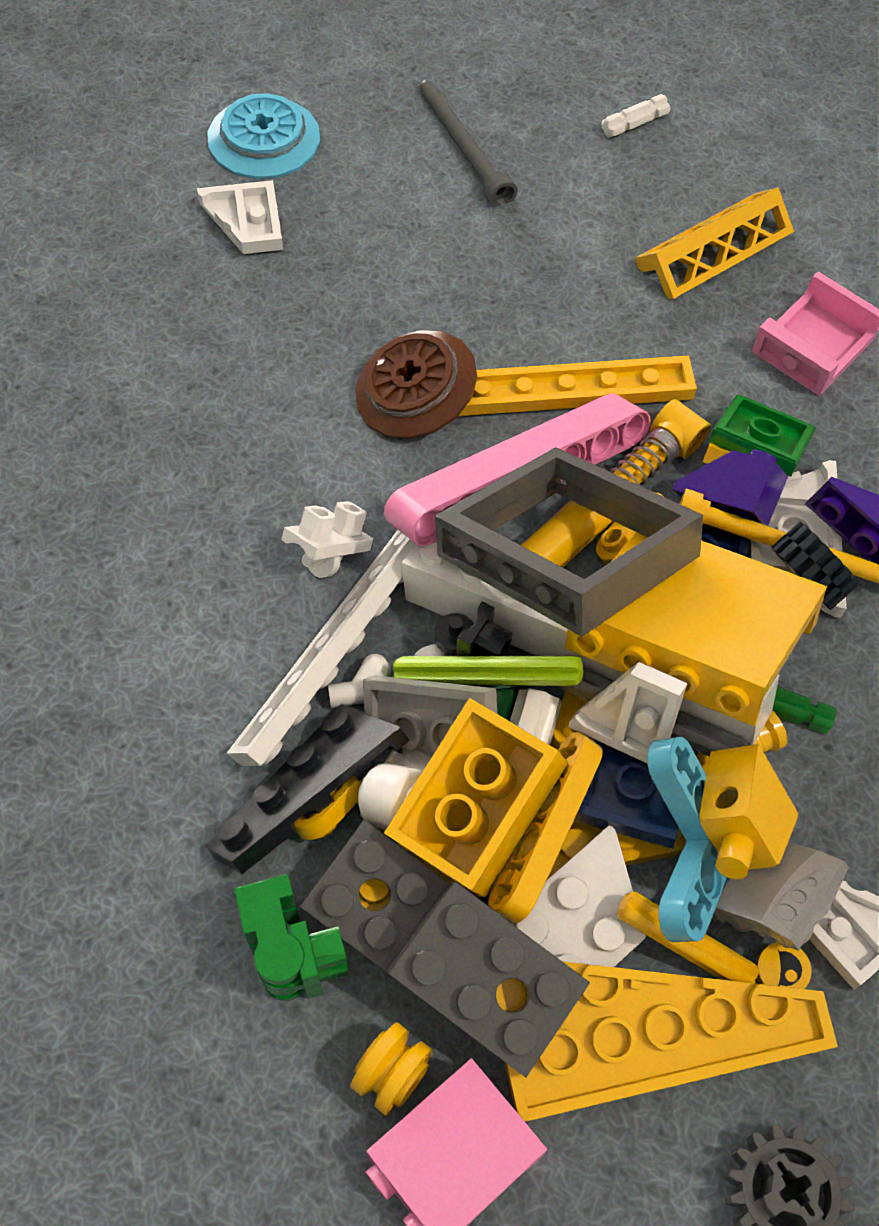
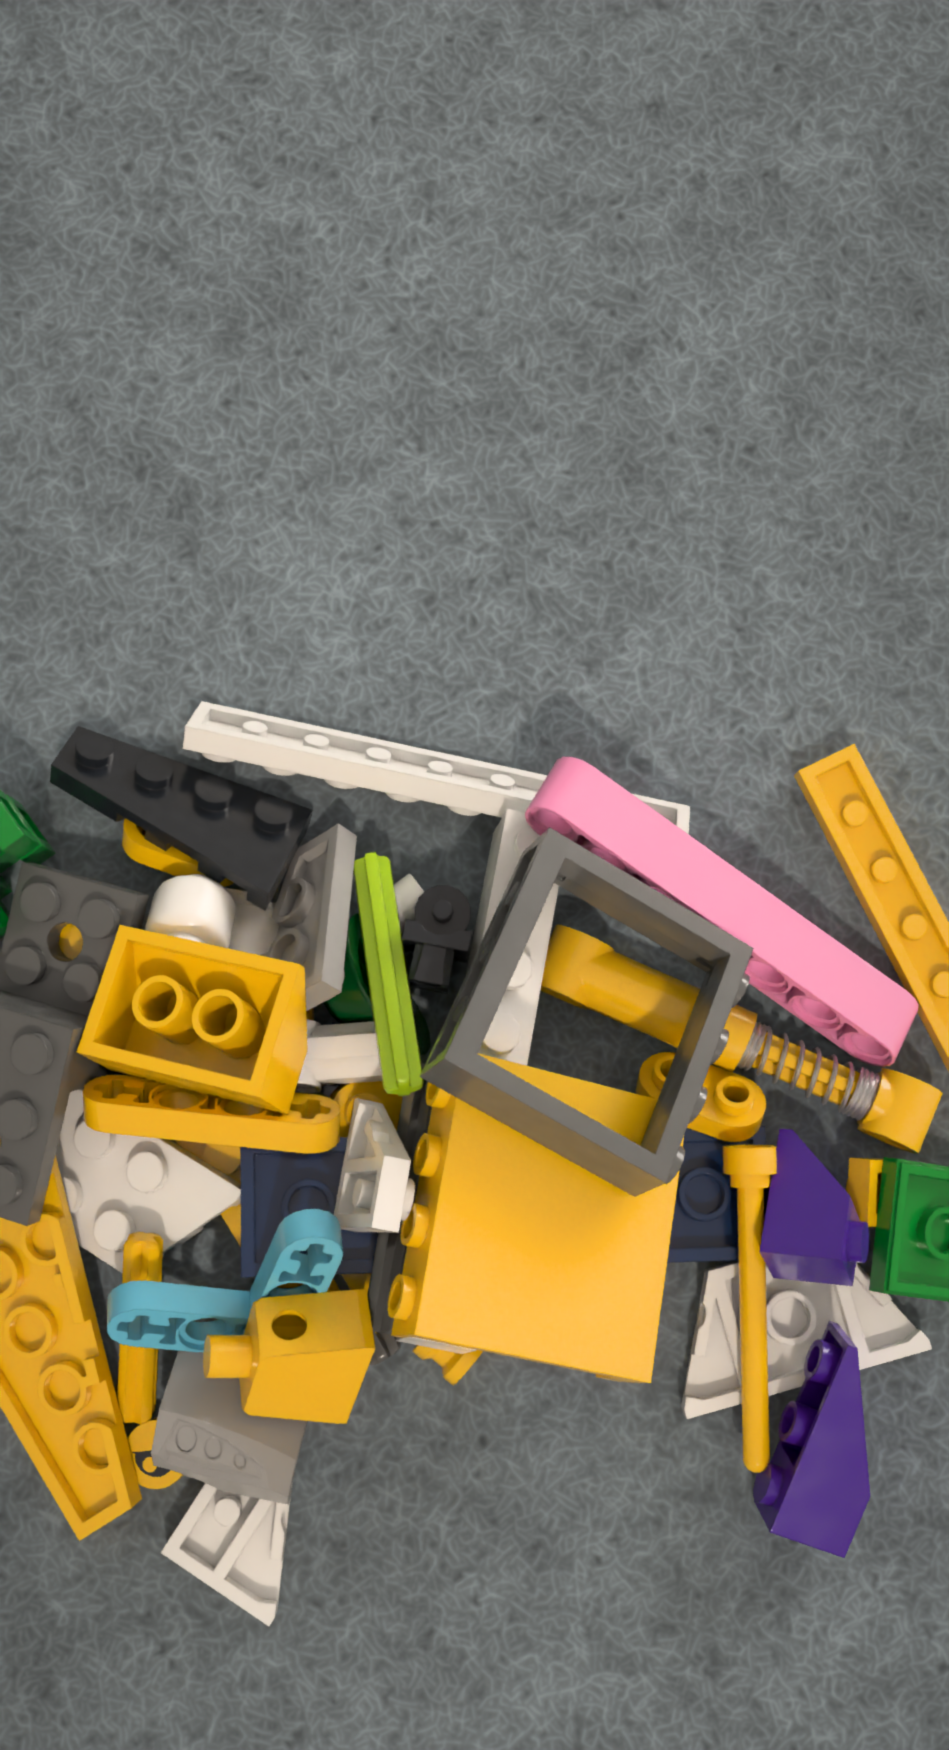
camera: 70 degrees right, 20 degrees up
(329, 536) = (523, 701): white hips -> none
(352, 692) = (372, 831): white arm -> none
(416, 384) = (818, 758): reddish brown piece -> none
(799, 709) = (518, 1393): green axle -> none
(814, 560) = (704, 1358): black wheel -> none

